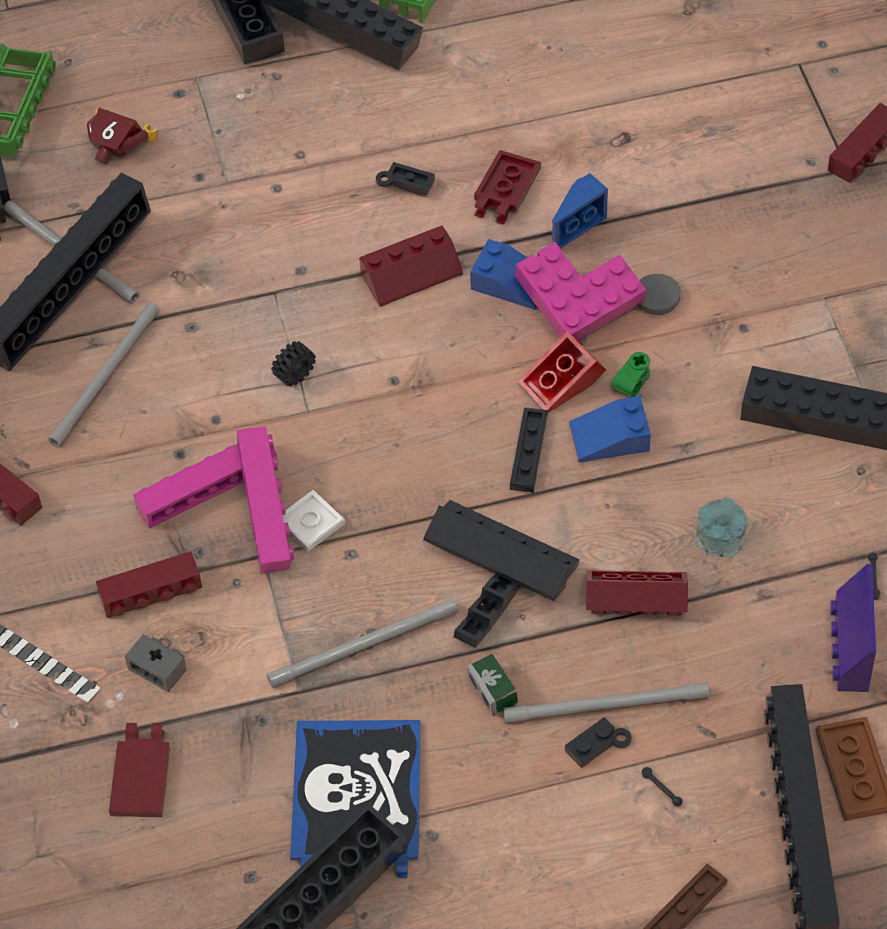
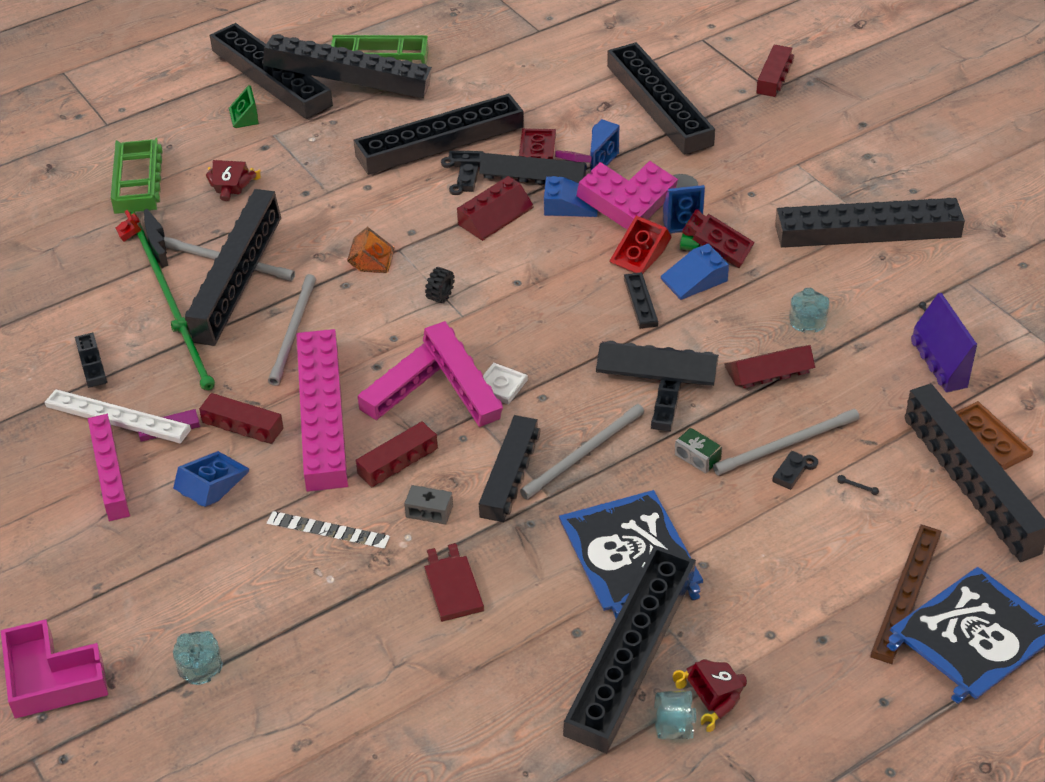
camera: 20 degrees left, 10 degrees down
(88, 498) = (321, 411): none -> dark pink brick
(174, 32) = (244, 110): none -> green slope
(236, 291) = (370, 252): none -> clear orange slope
(266, 642) = (509, 468): none -> black brick
(391, 133) = (438, 133): none -> black brick
(398, 209) = (466, 179): none -> black hinge
(480, 219) = (529, 168): none -> black brick
(536, 215) = (573, 156): none -> magenta tile
(632, 335) = (680, 206): none -> blue slope
(662, 389) = (721, 237): none -> dark red tile
(692, 150) = (661, 98): none -> black brick

